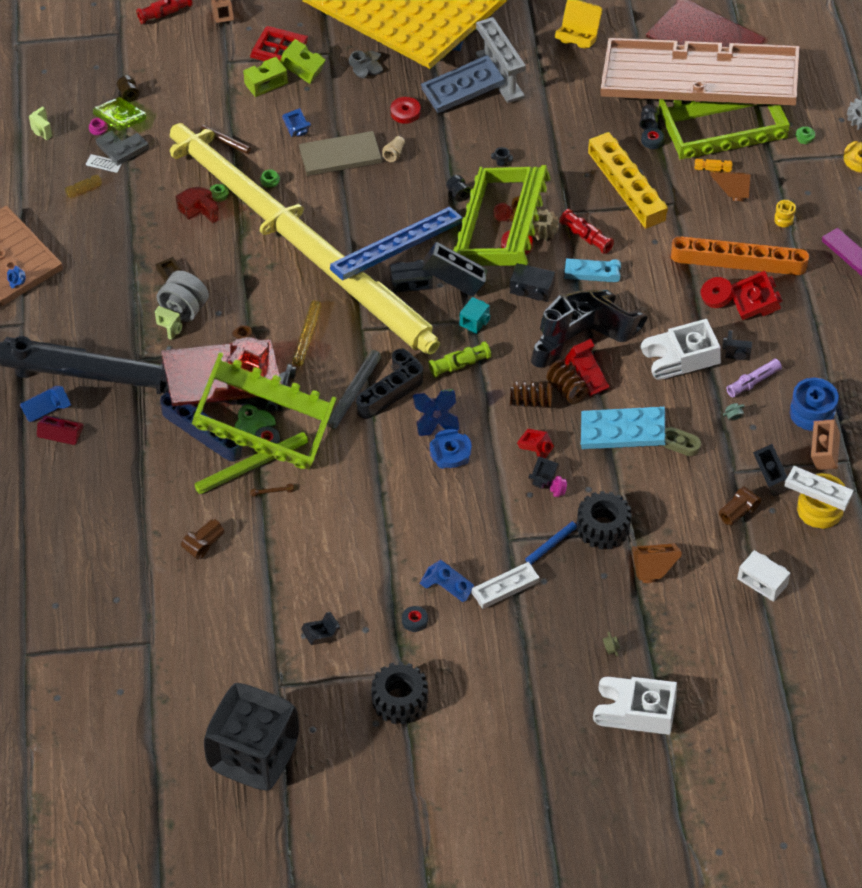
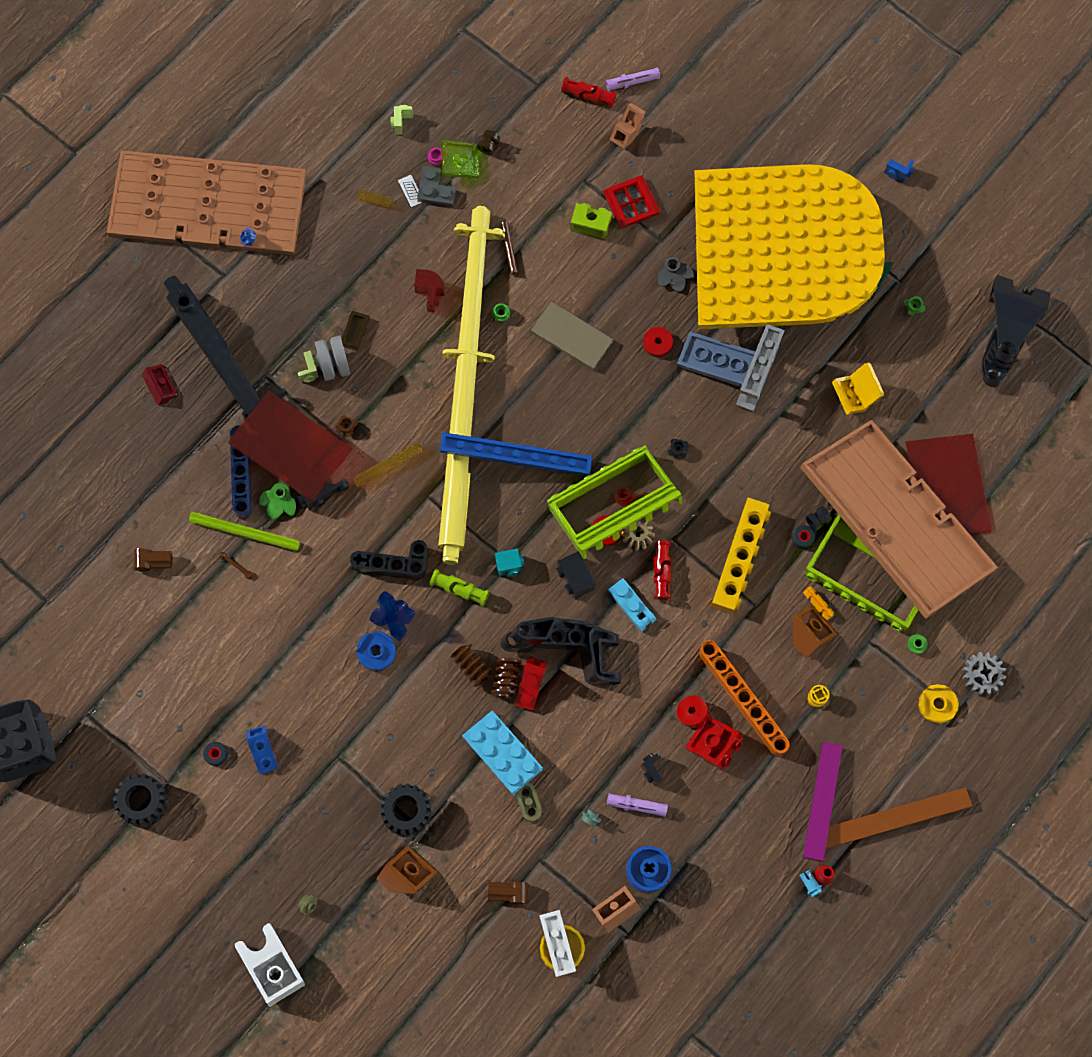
camera: 45 degrees right, 20 degrees up
(45, 403) = (168, 355): blue bracket -> none
(219, 192) = (455, 295): bright green plate -> none
(249, 351) = (317, 447): clear red brick -> none
(268, 432) = (273, 515): black wheel -> none
(272, 391) = (301, 494): lime window -> none
(296, 123) = (568, 282): blue bracket -> none
(298, 55) = (625, 243): lime brick -> none
(321, 631) = (147, 703): black bracket -> none
(353, 389) = (368, 540): dark grey axle -> none
(393, 150) = (609, 369): tan cone -> none
(410, 277) = (502, 488): black brick -> none
(454, 269) = (527, 515): black brick -> none
(458, 188) = (616, 446): black wheel -> none
(505, 585) = (293, 790): white plate -> none
(536, 441) = (434, 704): red bracket -> none
(543, 473) = (410, 733): black bracket -> none
(551, 543) = (359, 788): blue bar -> none
(558, 486) = (409, 752): dark pink plate -> none
(682, 349) = (609, 728): white brick -> none
(763, 575) = (460, 960): white brick -> none
(772, 469) = (557, 890): black brick -> none

